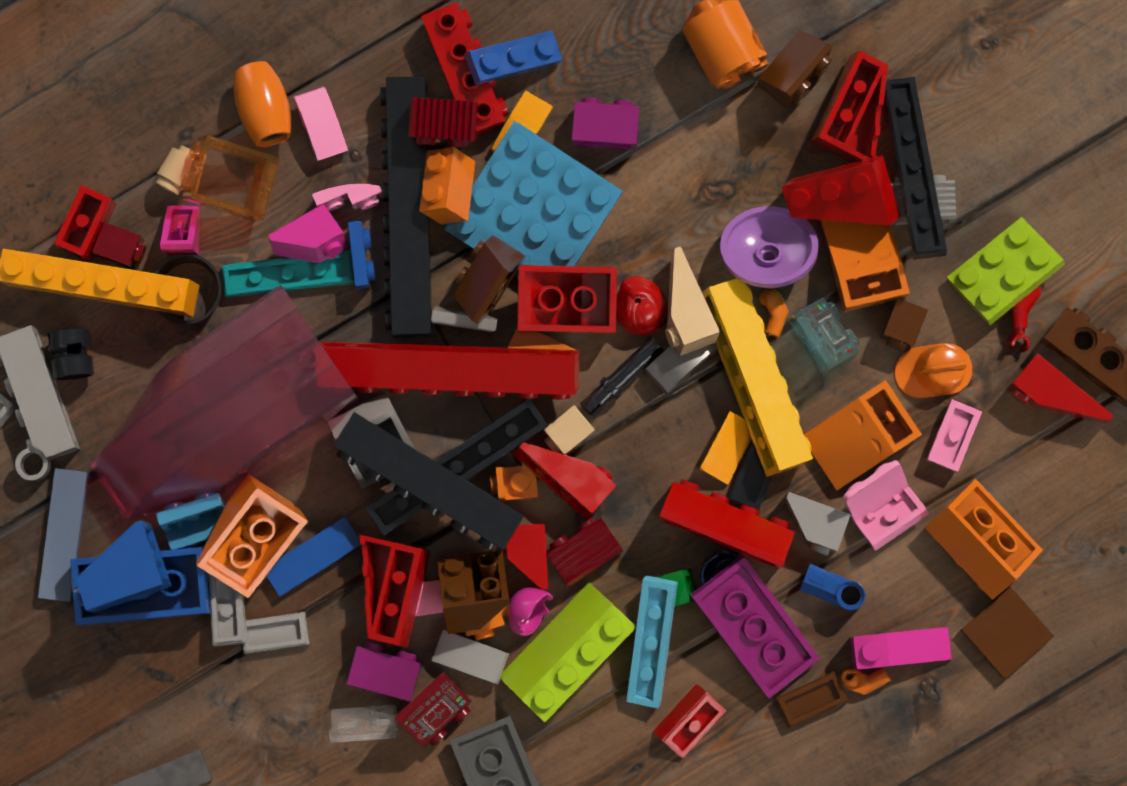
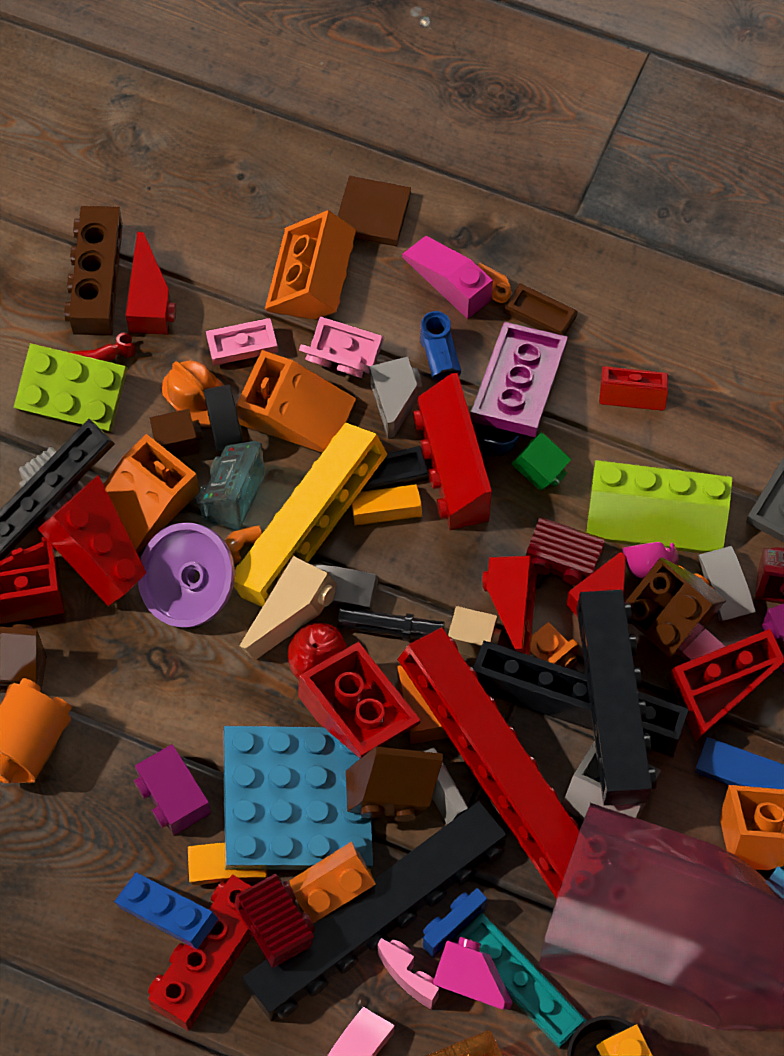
camera: 130 degrees left, 20 degrees down
(652, 641) = (596, 443): medium azure plate -> none
(887, 365) = (222, 416): none -> black tyre

